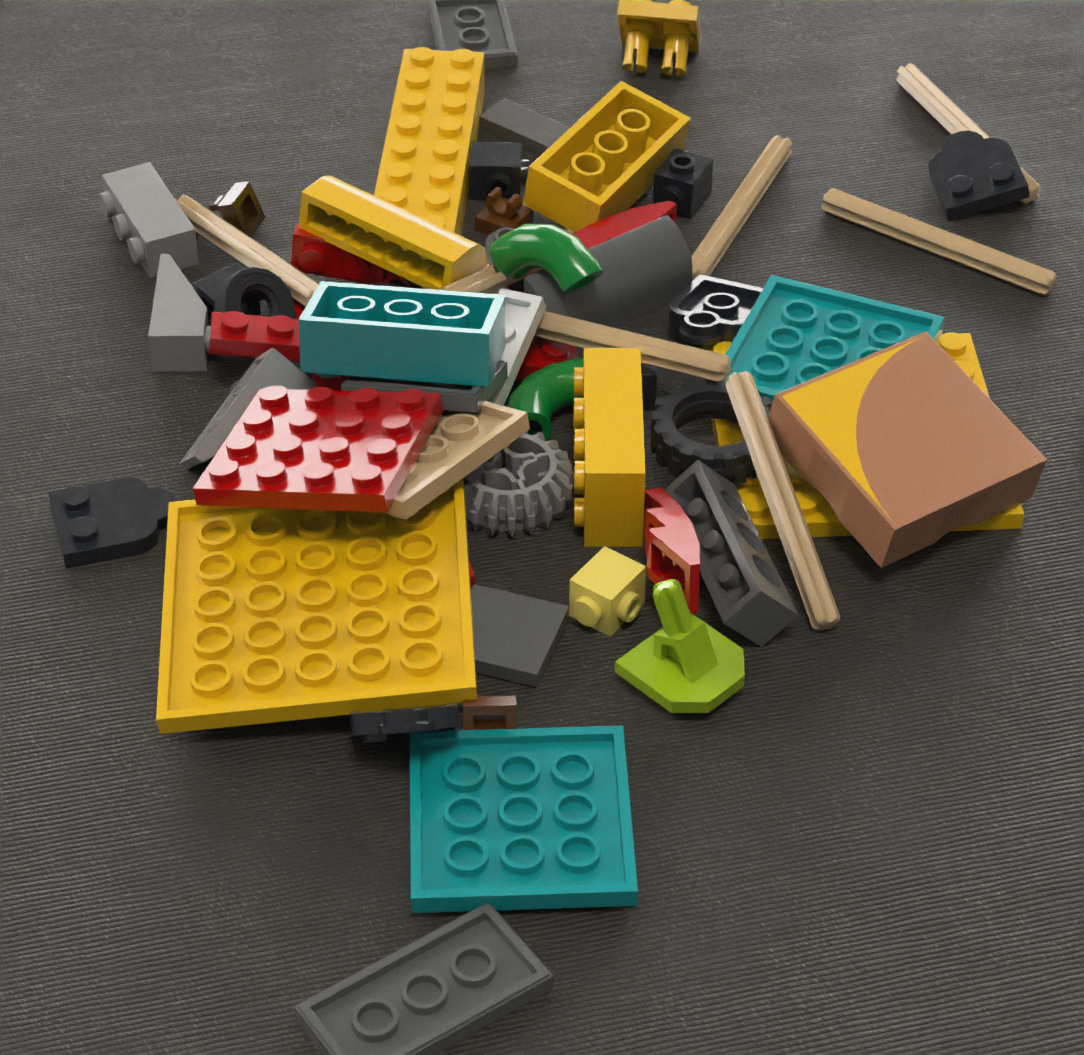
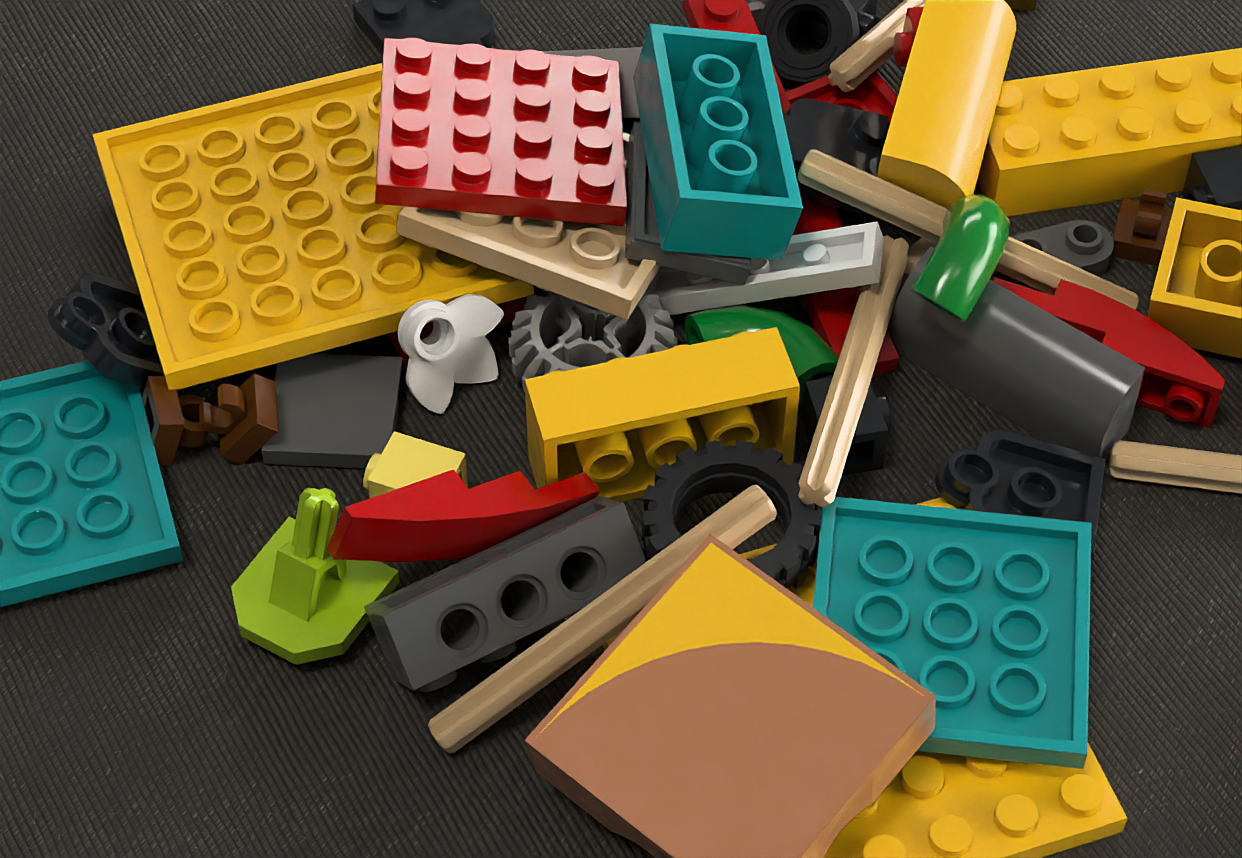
camera: 75 degrees right, 10 degrees up
(489, 541) = (453, 350): none -> white plate
(507, 673) = (243, 418): none -> reddish brown tile

